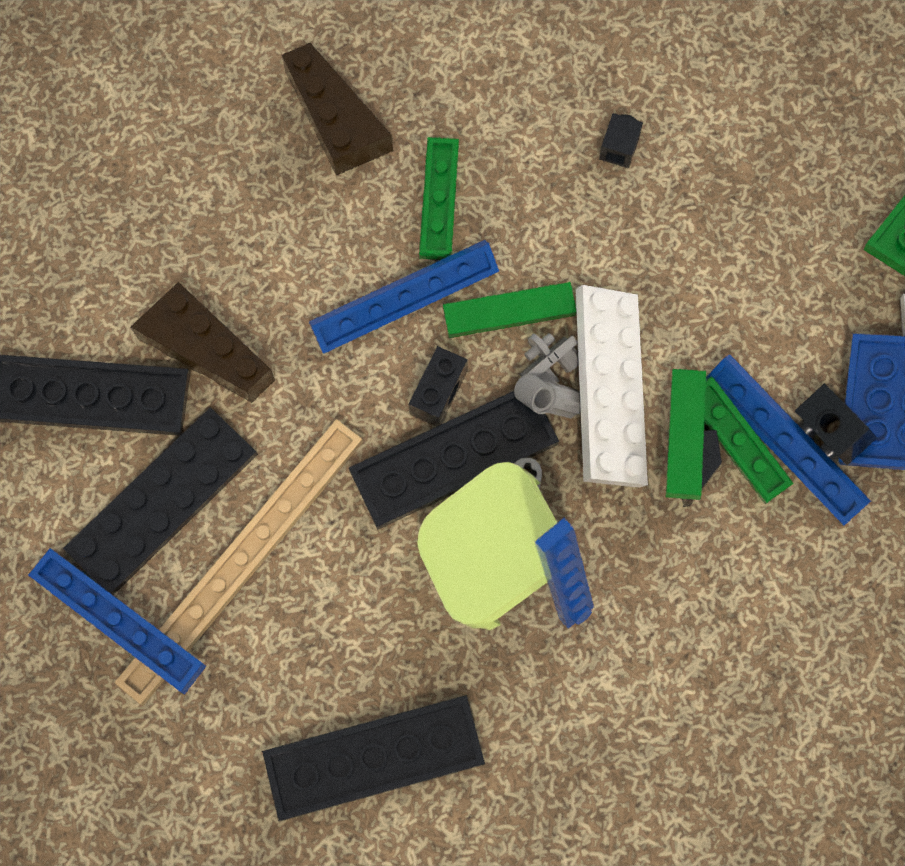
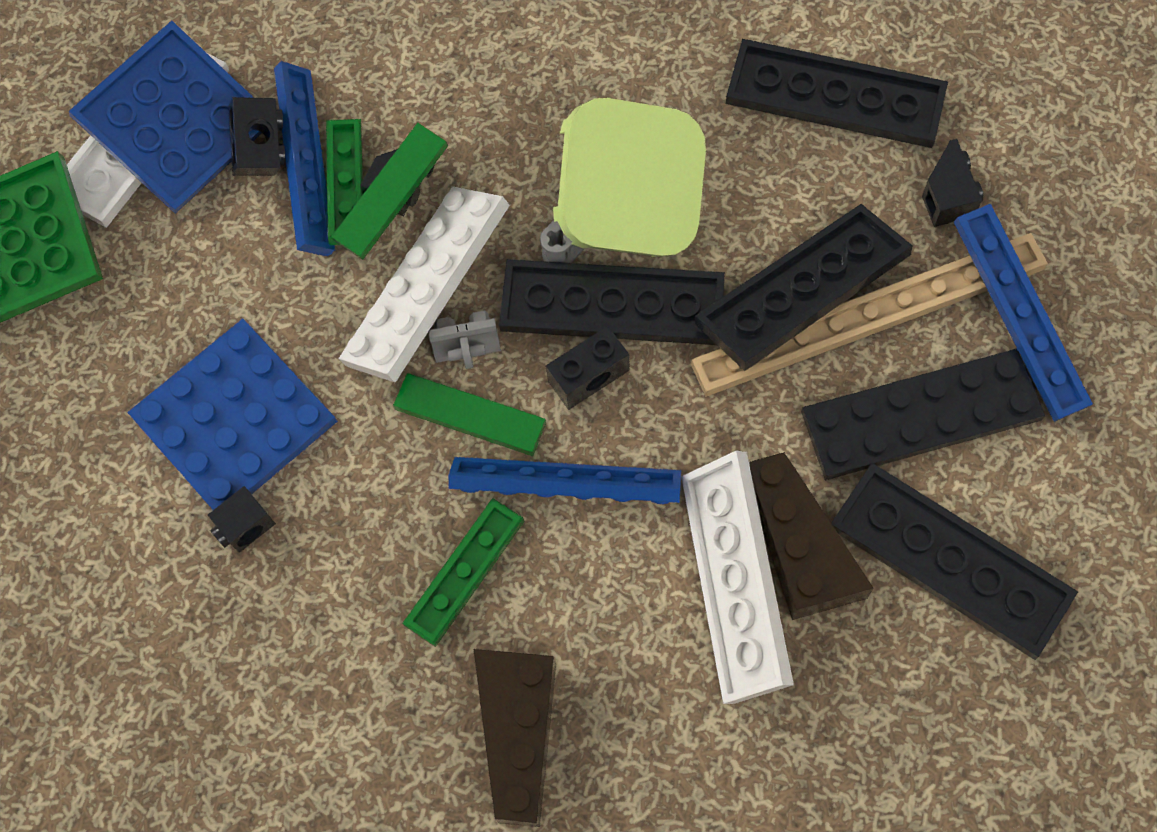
camera: 145 degrees left, 5 degrees down
(229, 712) = (951, 187): none -> black slope
(237, 288) = (736, 579): none -> white plate
(303, 546) = (802, 286): none -> black plate
(547, 396) = (491, 294): light grey piece -> none
(565, 573) = (586, 71): blue plate -> none
(686, 212) = (232, 416): none -> blue plate

